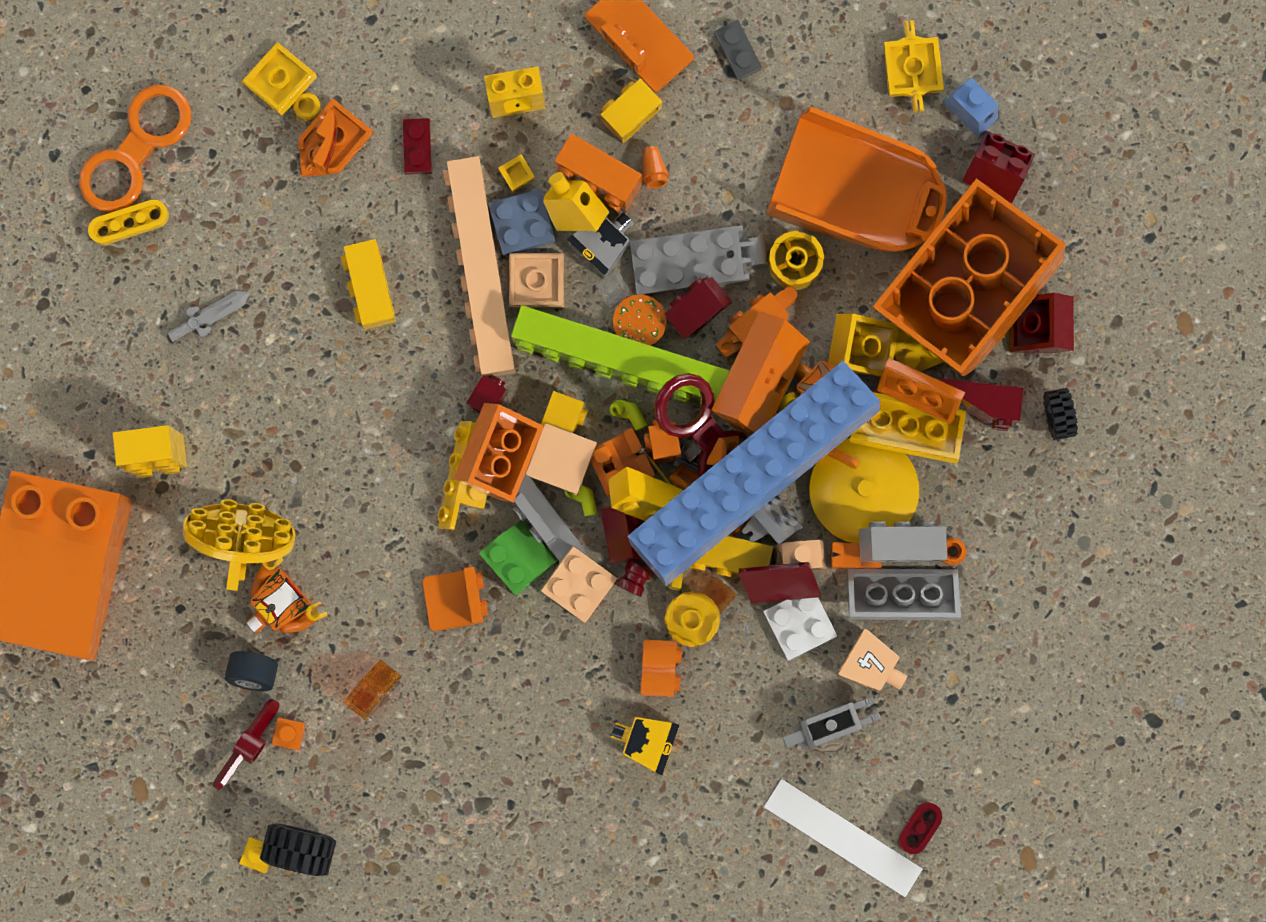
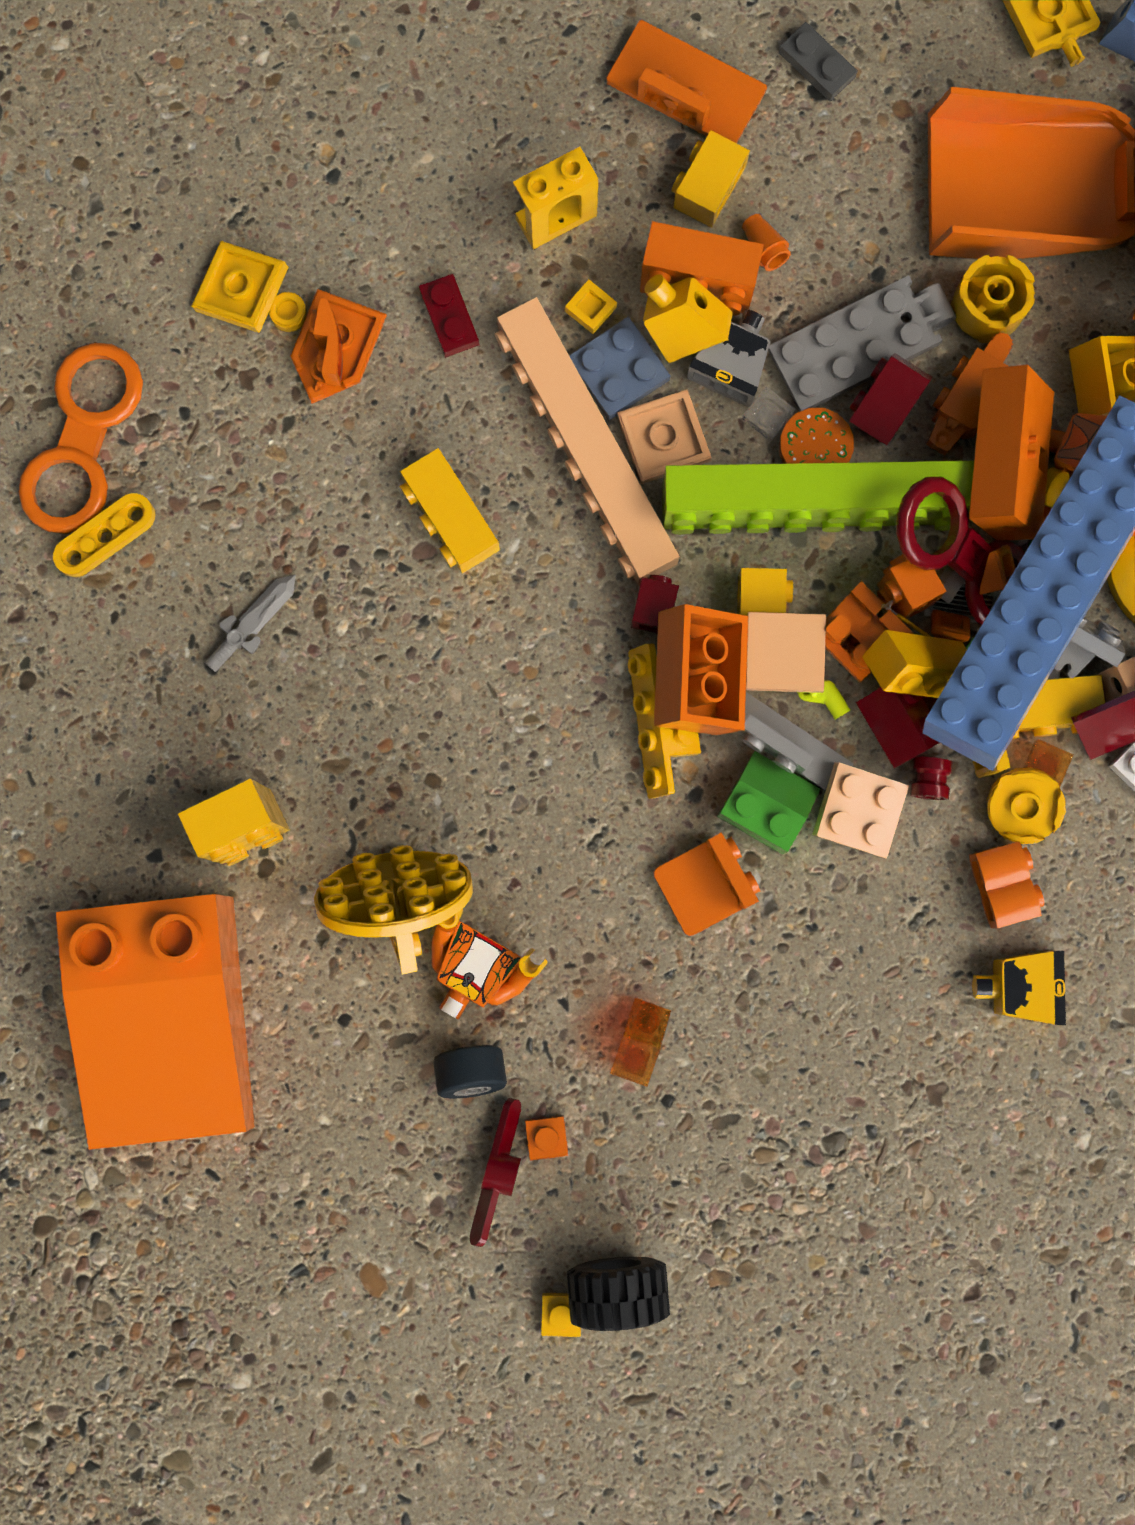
camera: 20 degrees left, 0 degrees up
(629, 411) = (843, 564): neon yellow arm -> none

